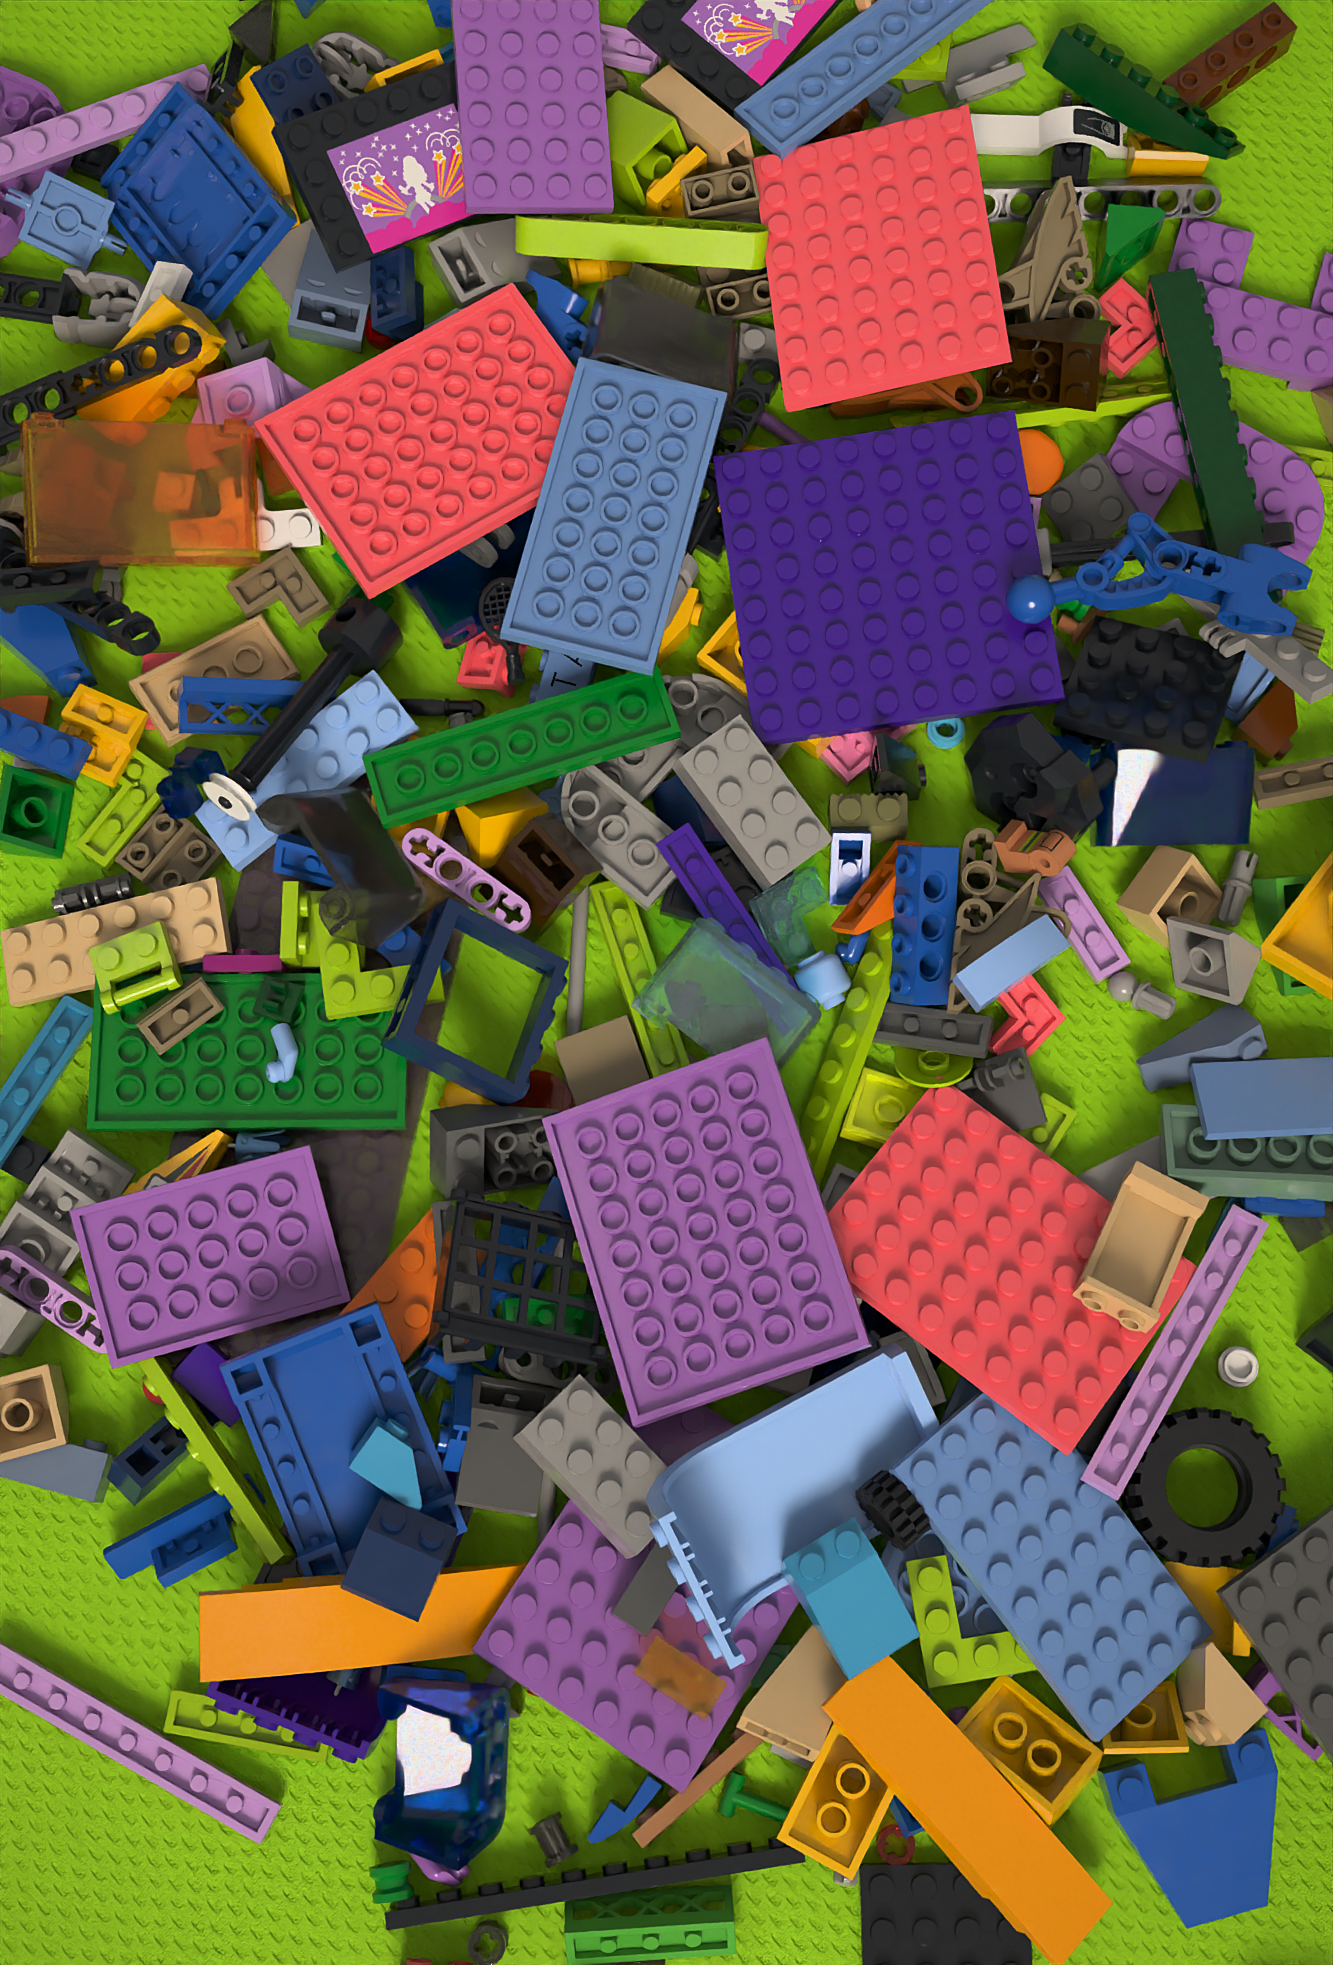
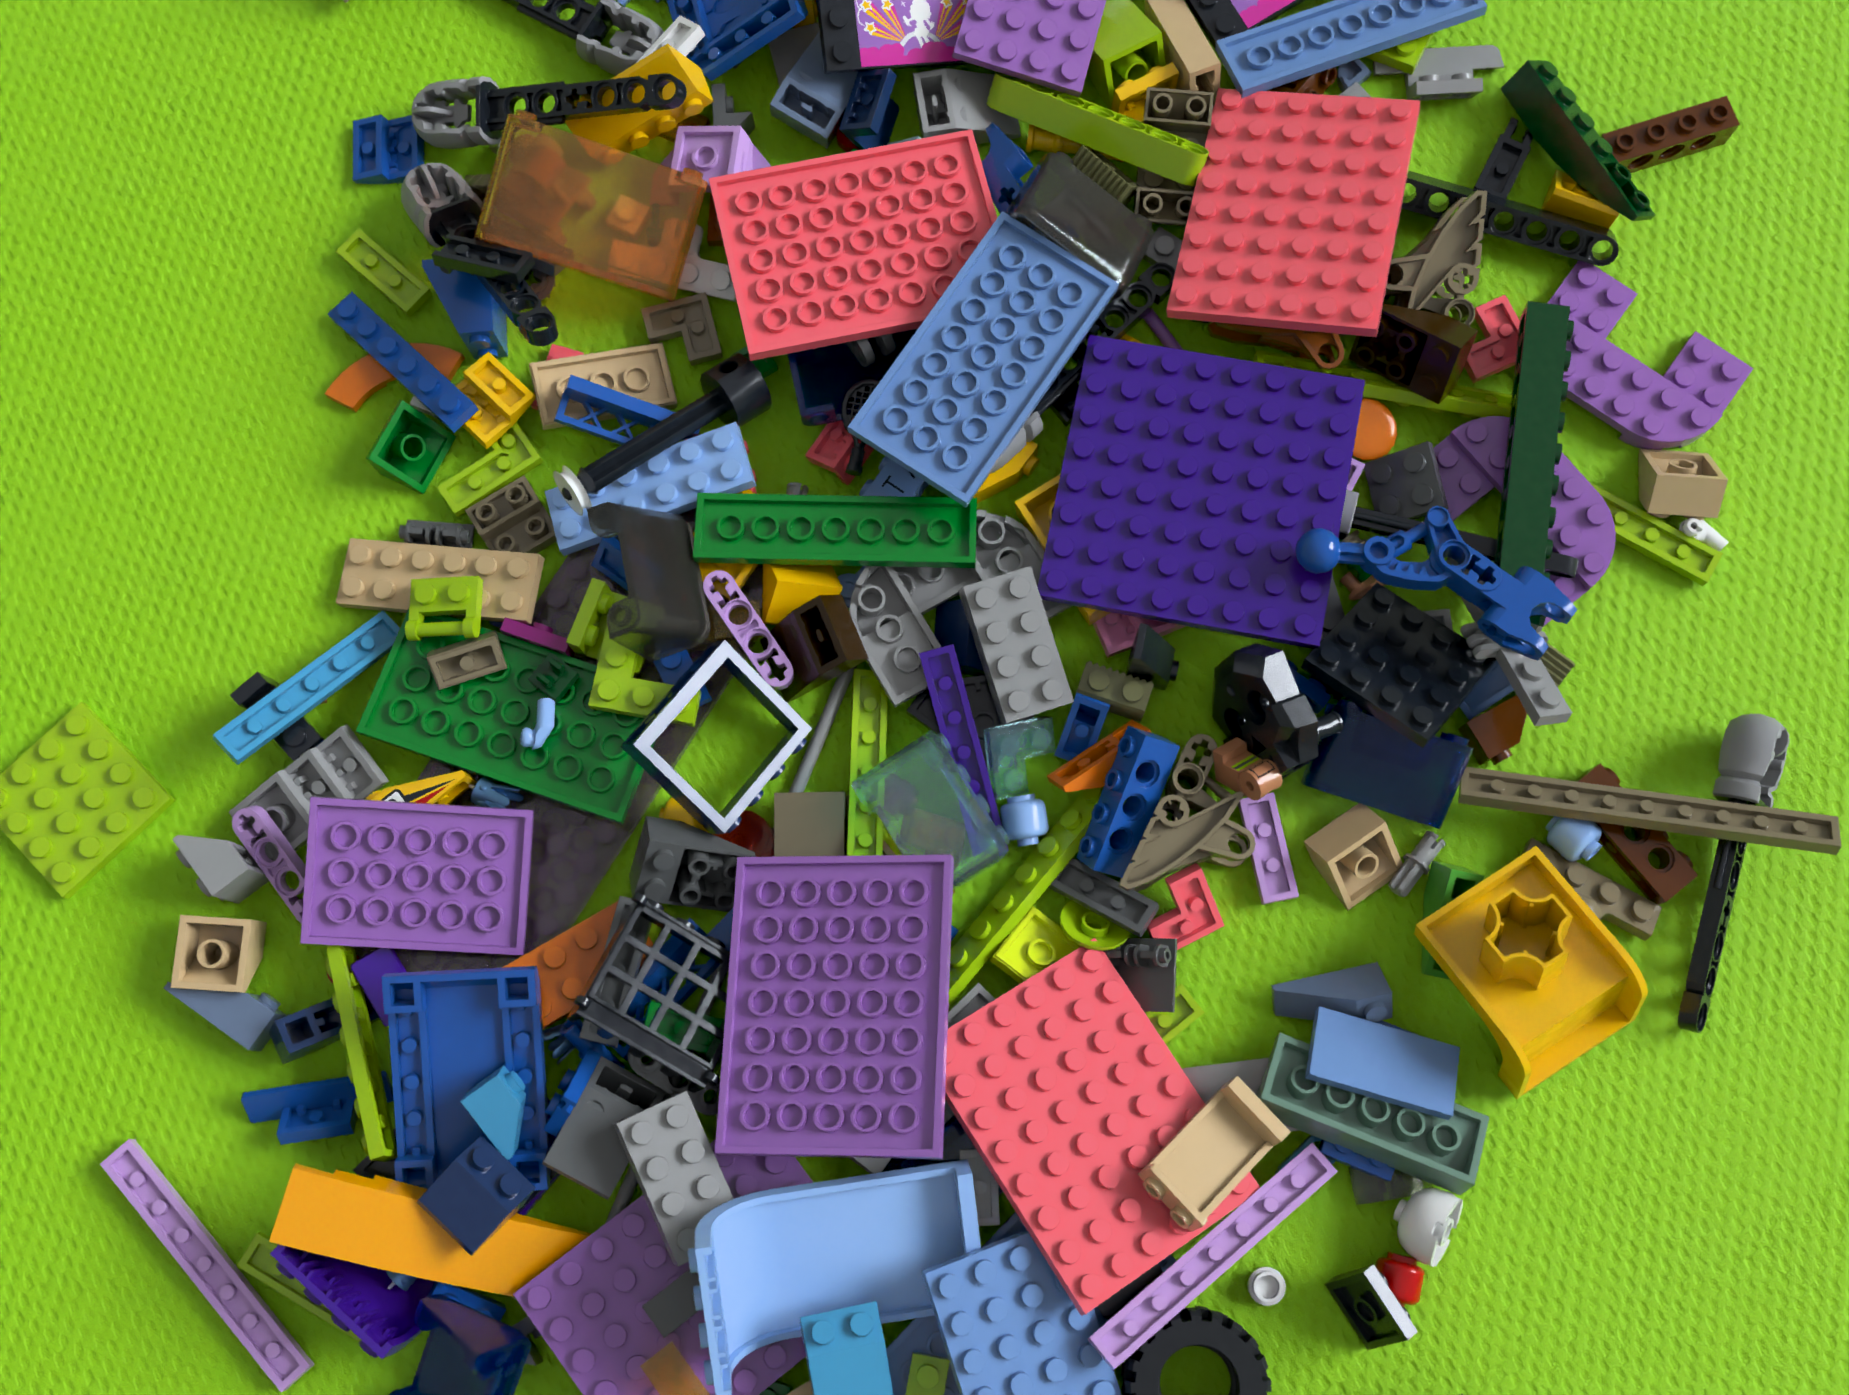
camera: 20 degrees right, 0 degrees up
(179, 789) = (538, 469): clear blue leg -> none
(435, 707) = (783, 472): black piece -> none
(852, 951) = (1060, 802): blue arm -> none
(892, 1510) = (913, 1307): black tyre -> none
(942, 742) = (1209, 649): medium azure plate -> none
(1010, 962) = (1188, 863): light blue slope -> none
(1033, 134) = (1474, 145): white piece -> none
(1124, 240) = (1519, 263): green slope -> none
(1125, 987) = (1287, 916): light grey axle -> none
(1211, 960) = (1369, 921): light grey slope -> none

